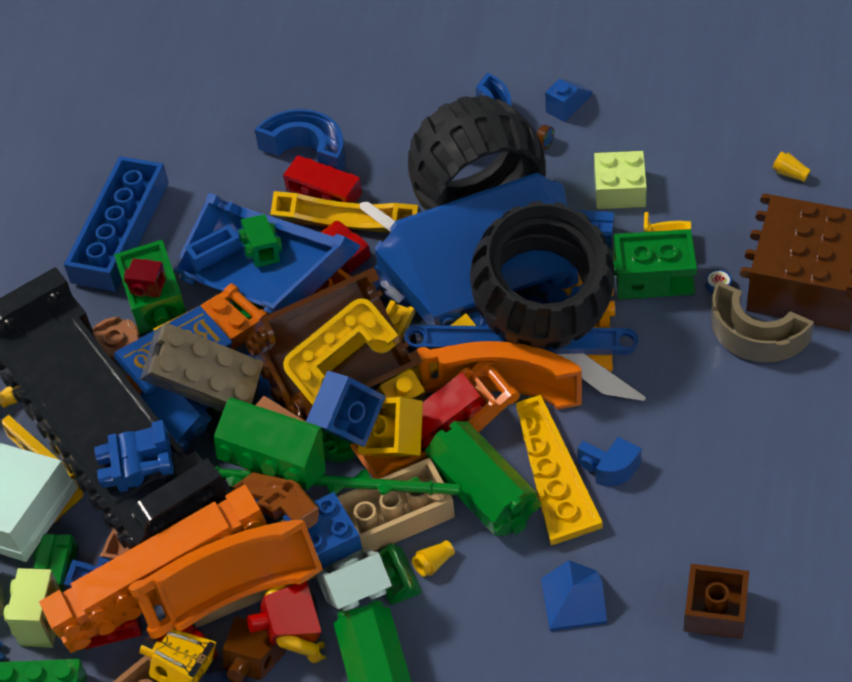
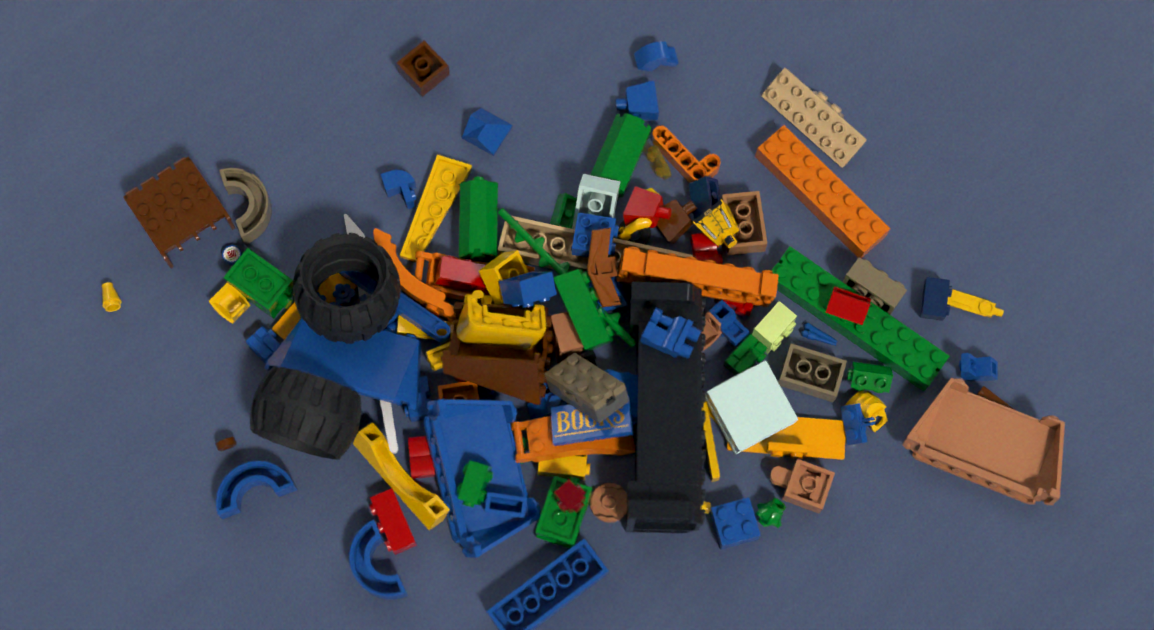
camera: 150 degrees left, 20 degrees up
(227, 572) = (666, 241): orange windscreen -> none
(432, 558) = (540, 204): yellow cone -> none
(565, 98) = (180, 466): blue slope -> none
(620, 180) = (216, 368): yellowish green brick -> none

